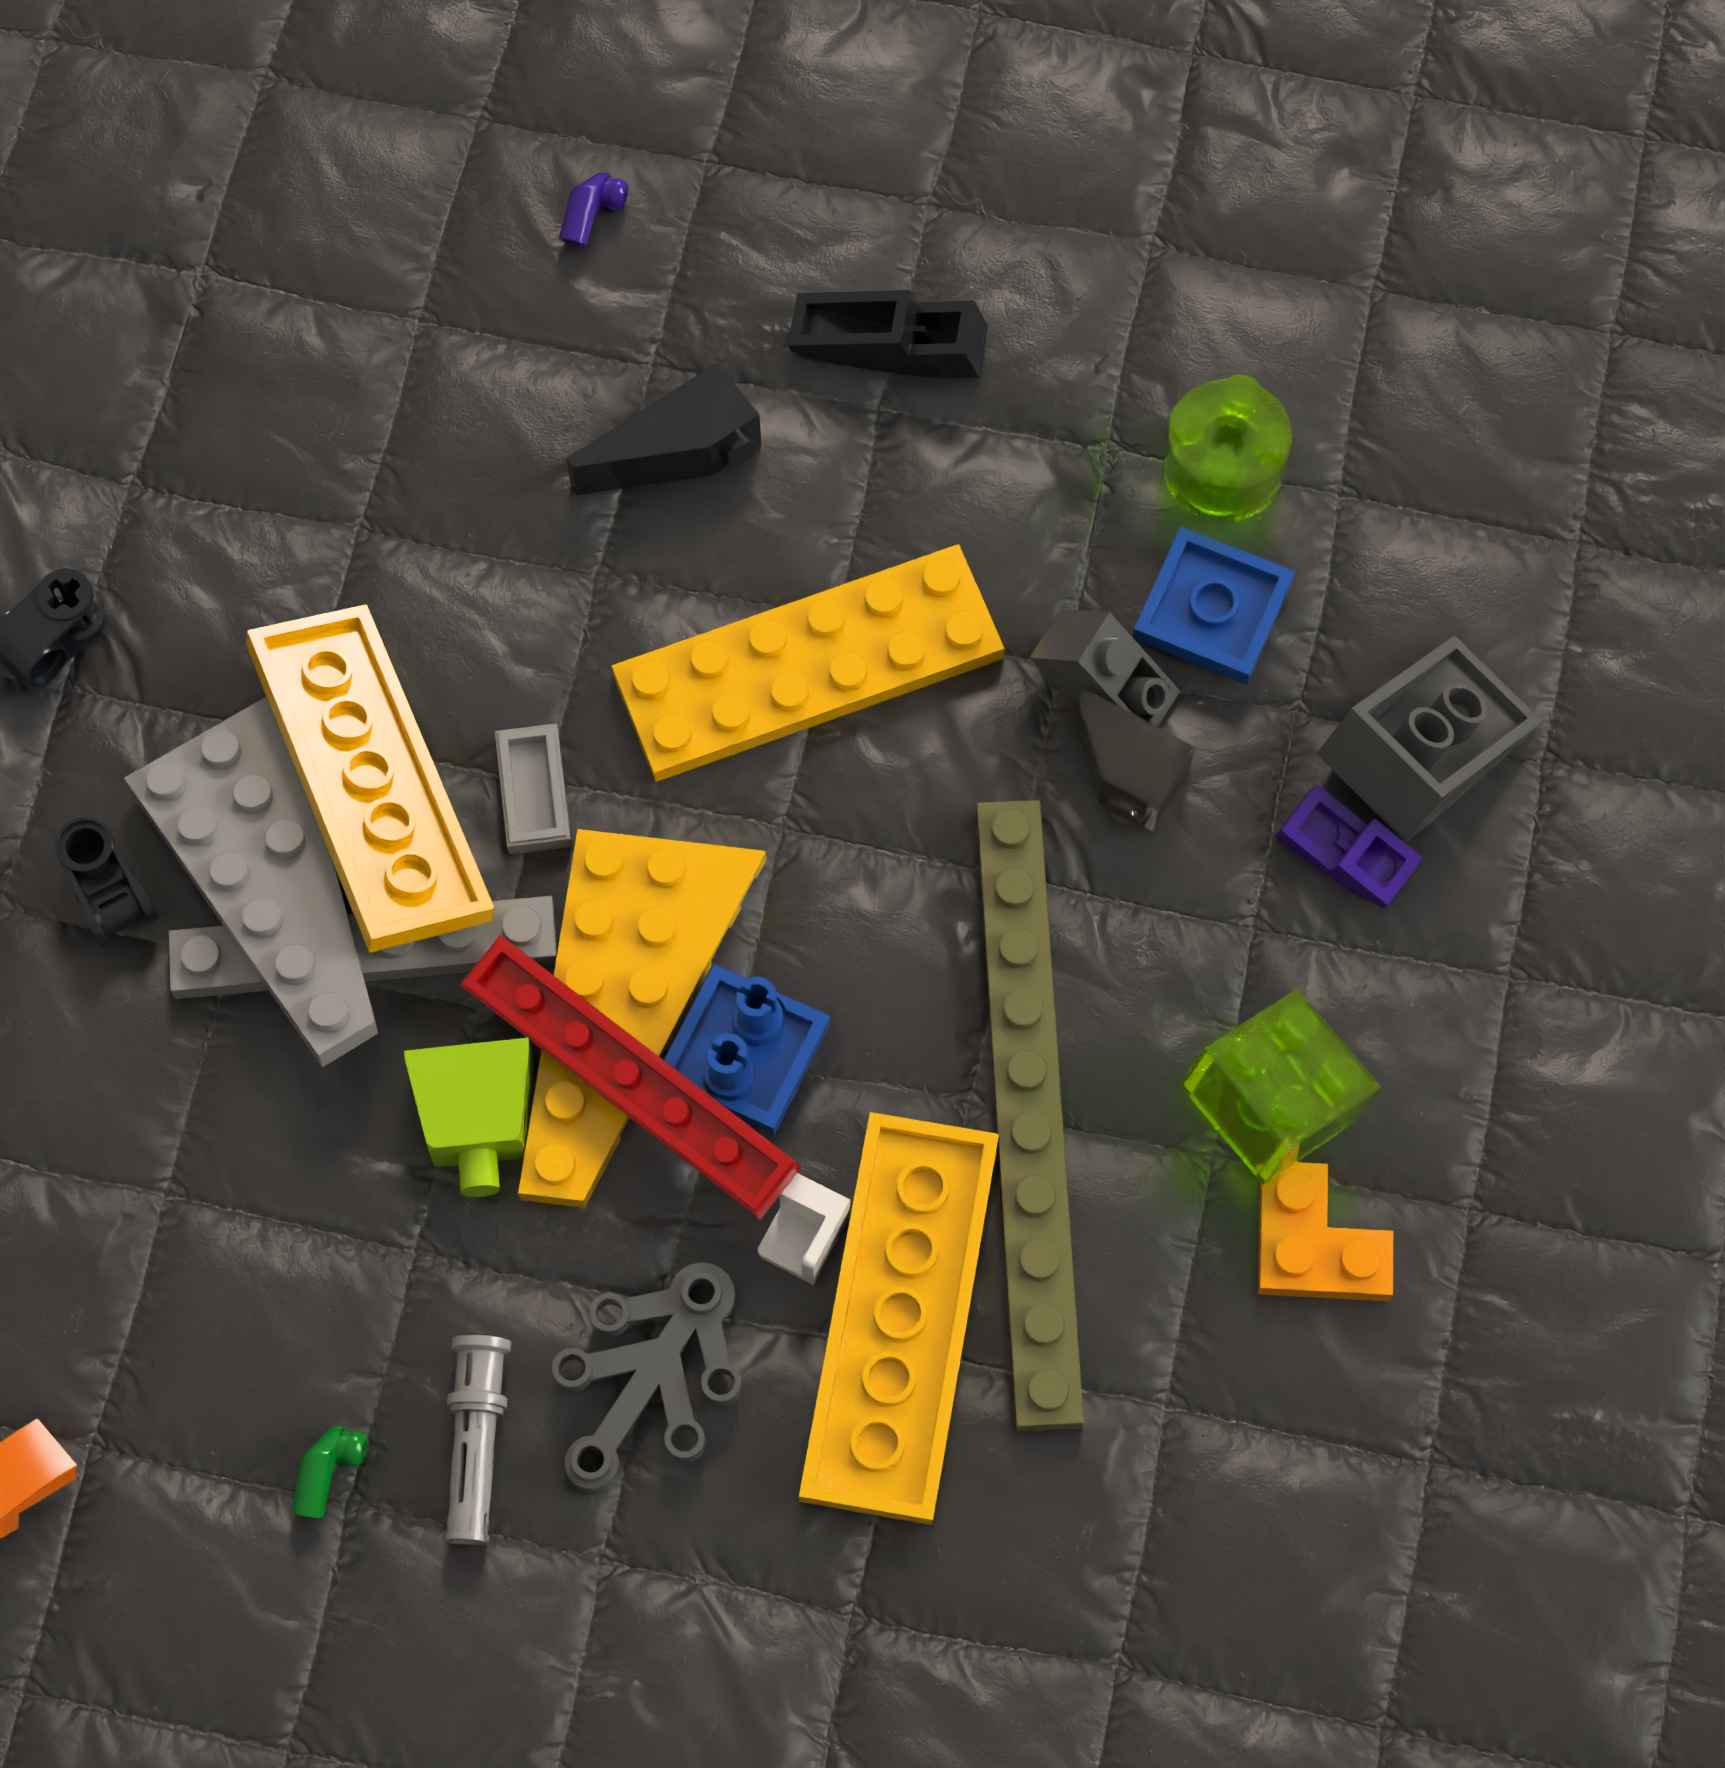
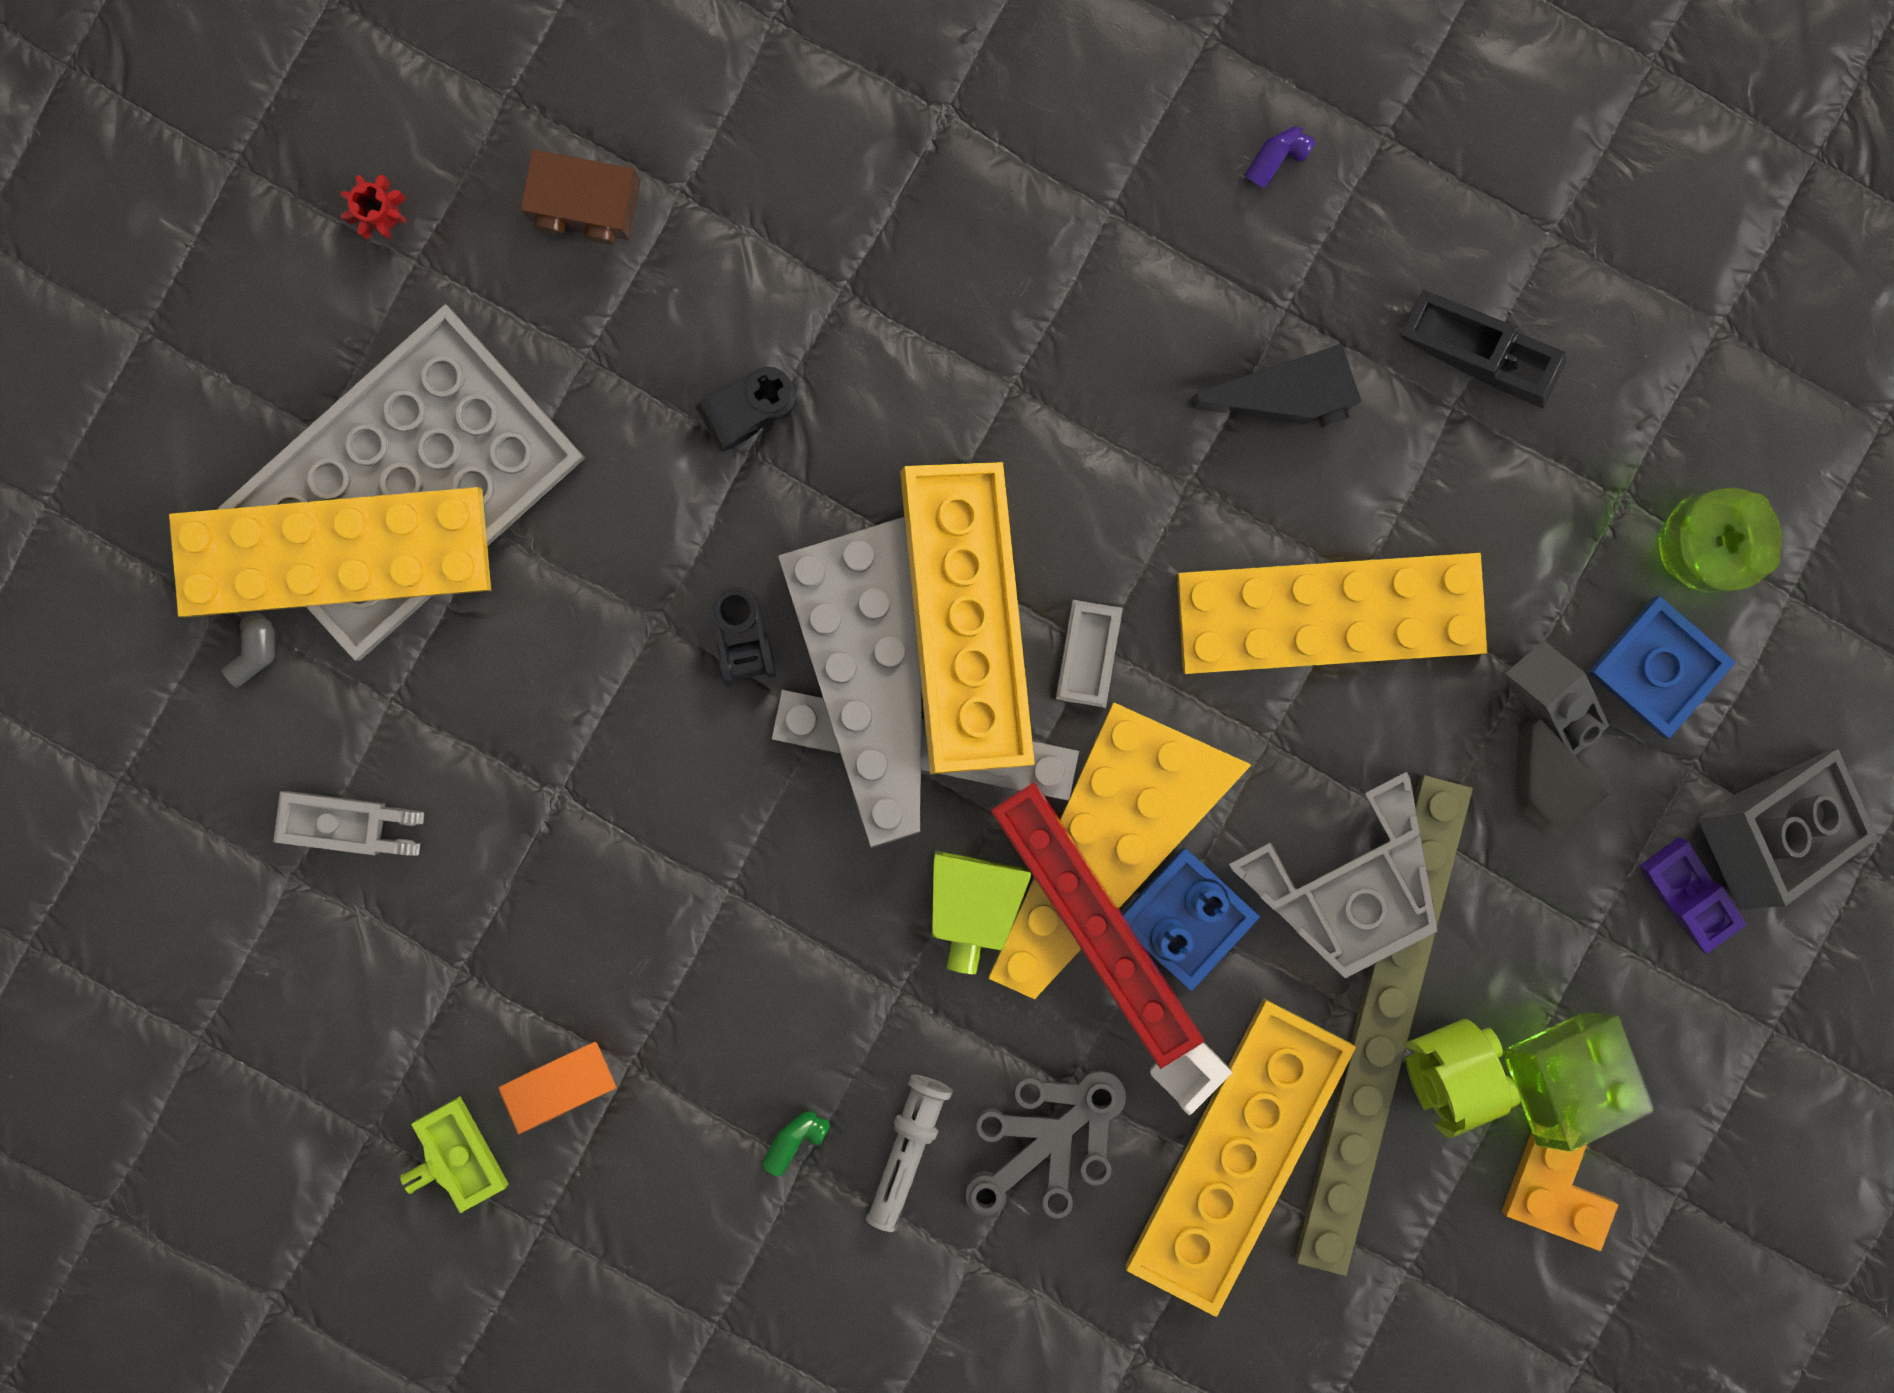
camera: 15 degrees right, 20 degrees up
(947, 962) = (1365, 905): none -> light grey wing
(1134, 1122) = (1461, 1077): none -> lime brick

